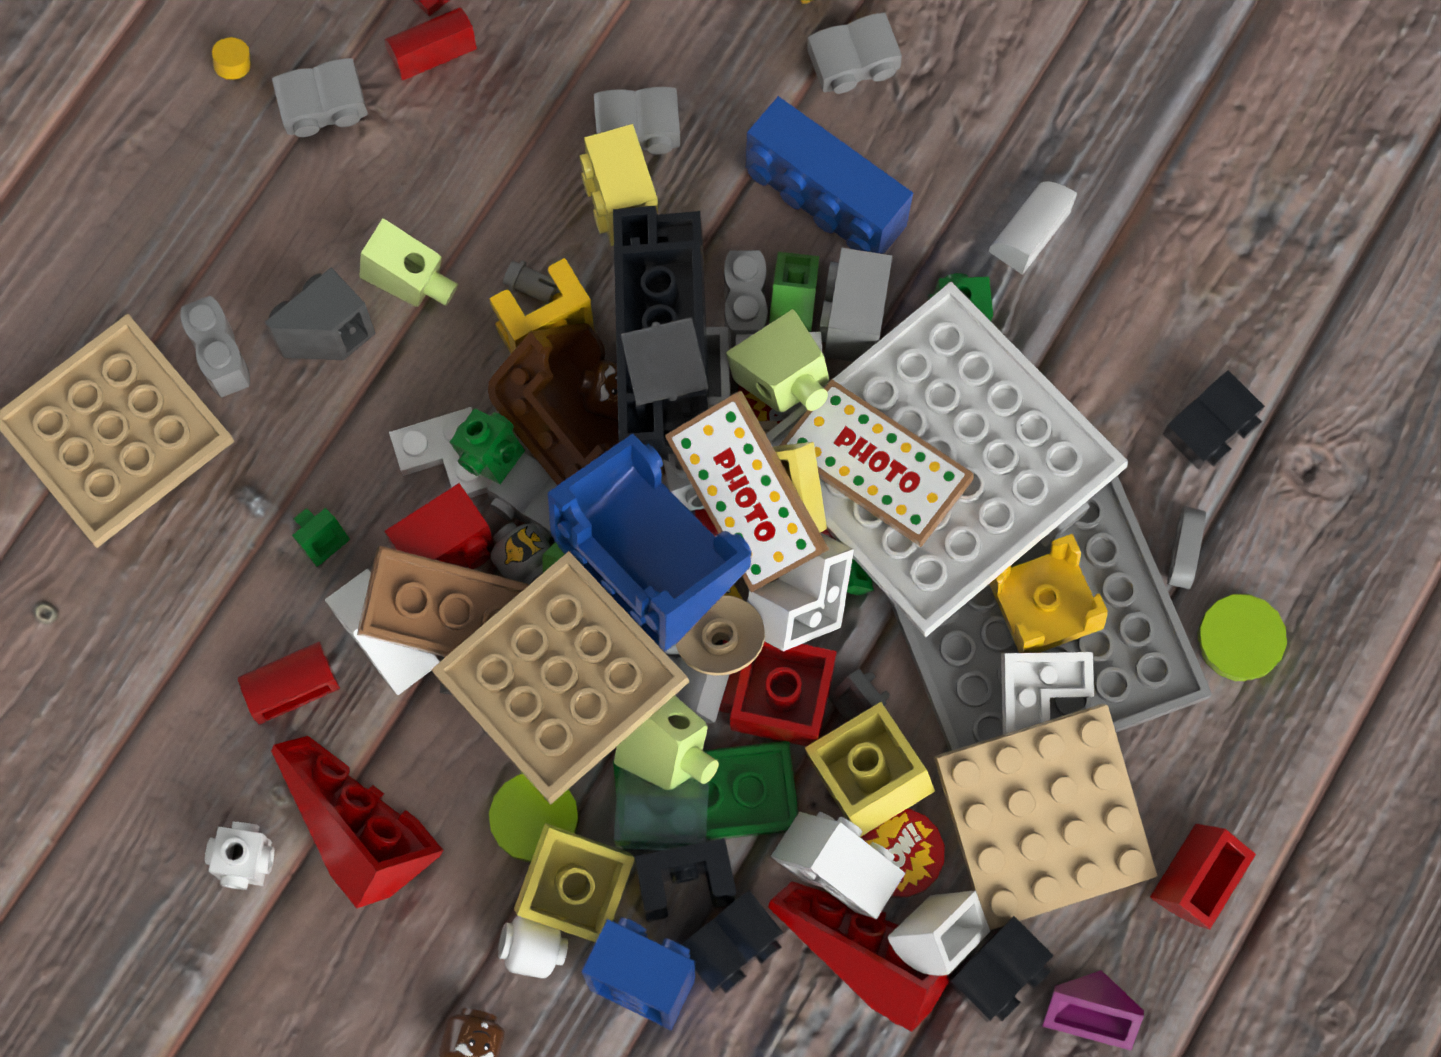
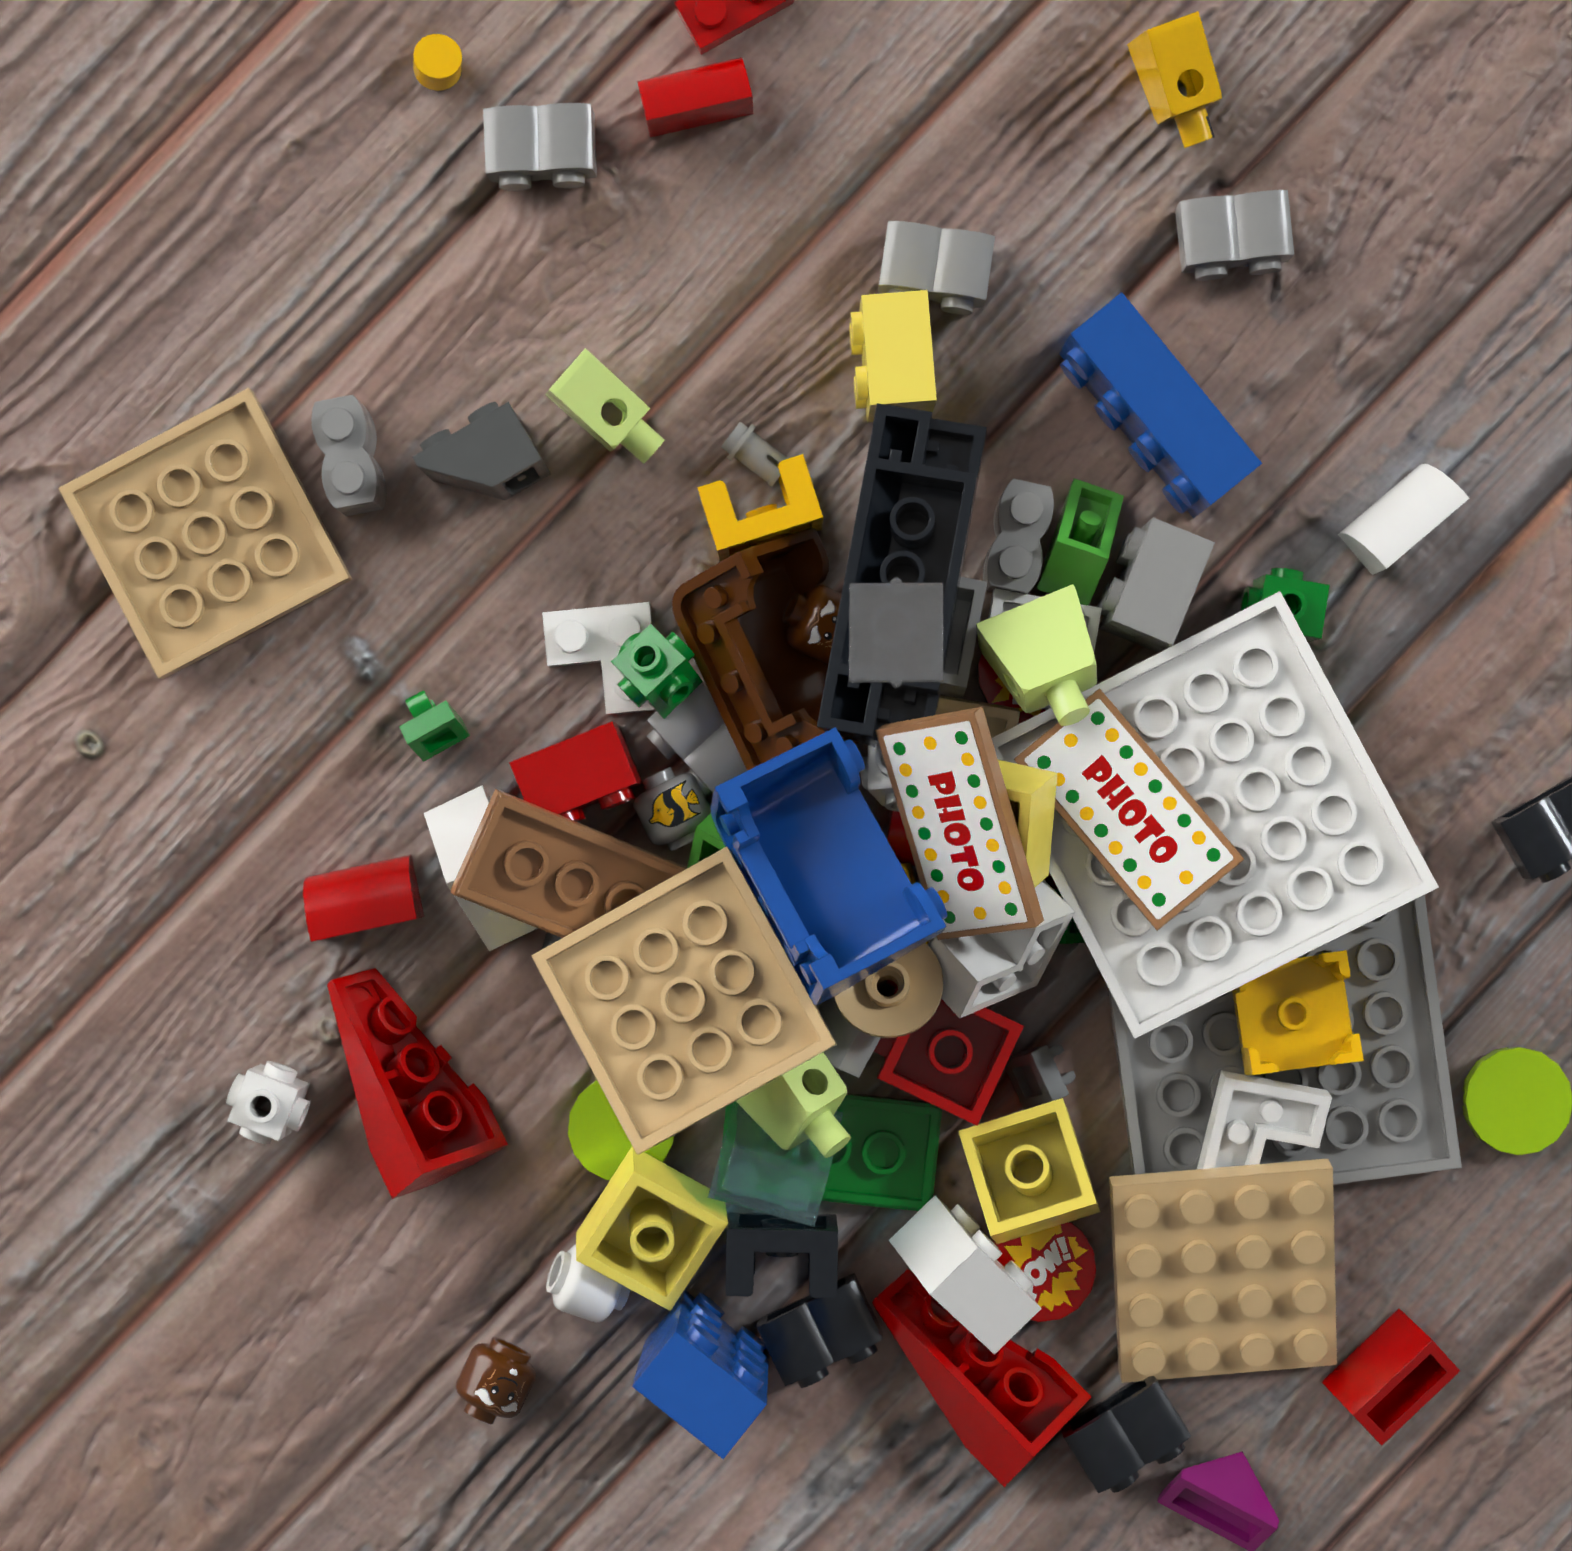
camera: 20 degrees right, 15 degrees up
(940, 932) = (1065, 1382): white brick -> none
(1186, 547) = (1480, 977): light grey beam -> none

